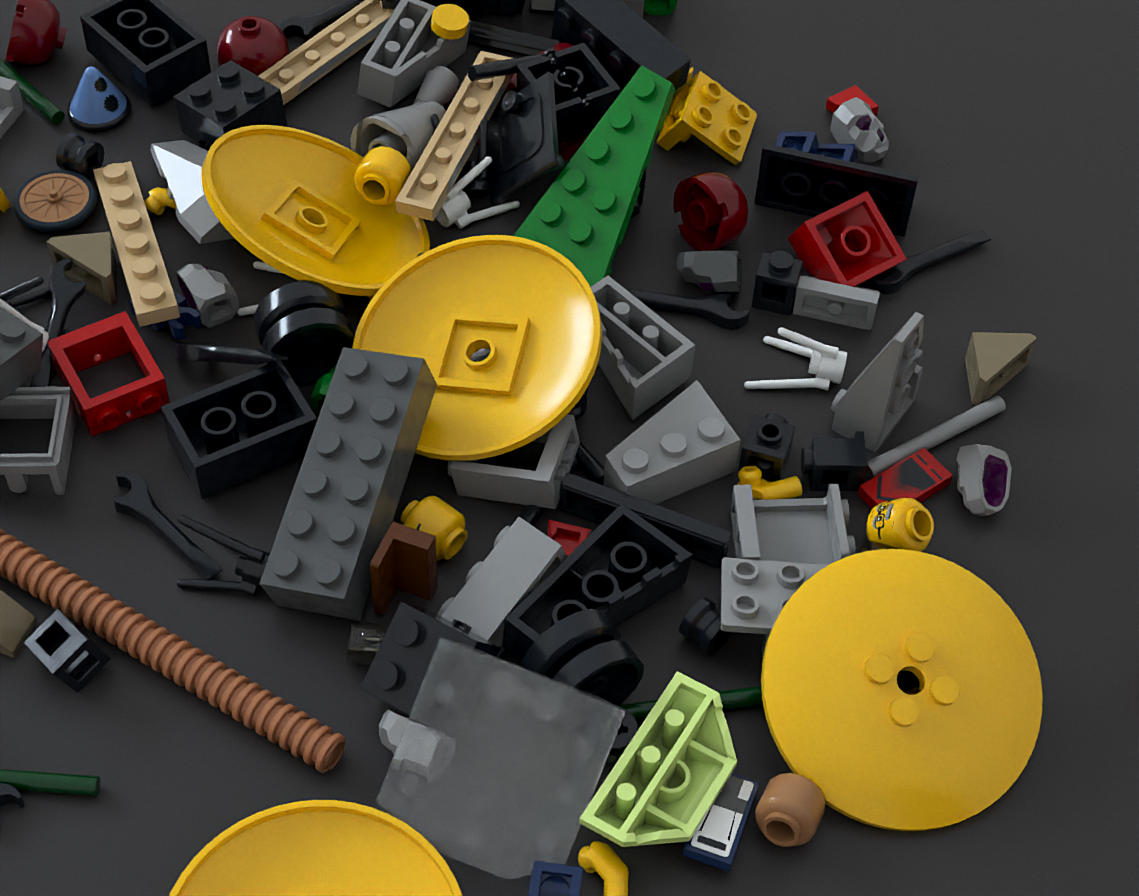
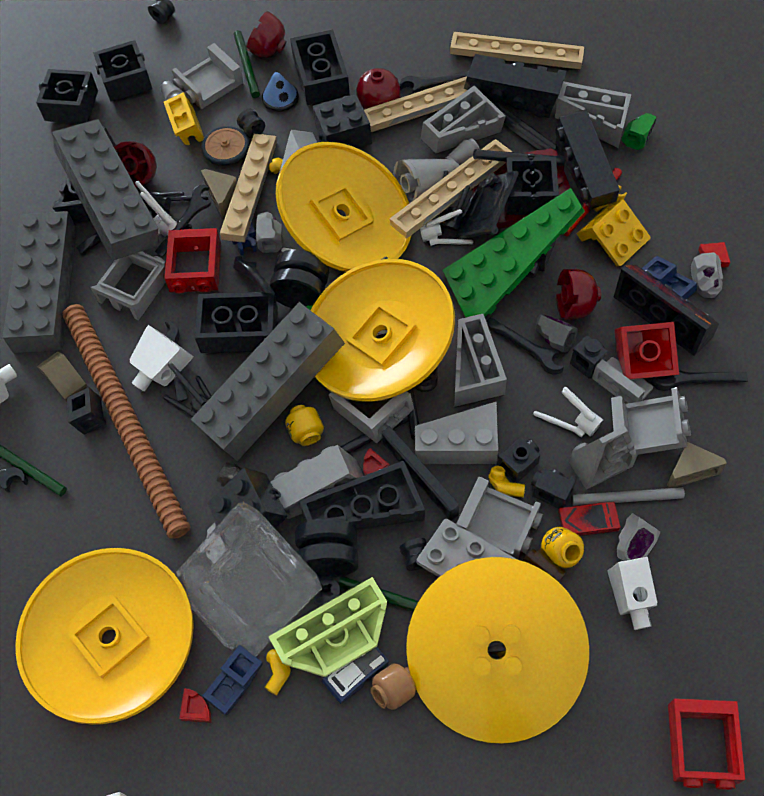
camera: 35 degrees right, 10 degrees up
(143, 526) = (153, 356): none -> white torso
(382, 175) = (394, 197): yellow head -> none
(405, 564) = (266, 438): reddish brown panel -> none
(449, 21) = (489, 112): yellow tile -> none
(945, 327) = (653, 423): none -> light grey panel
(1022, 537) = (634, 578): none -> white torso

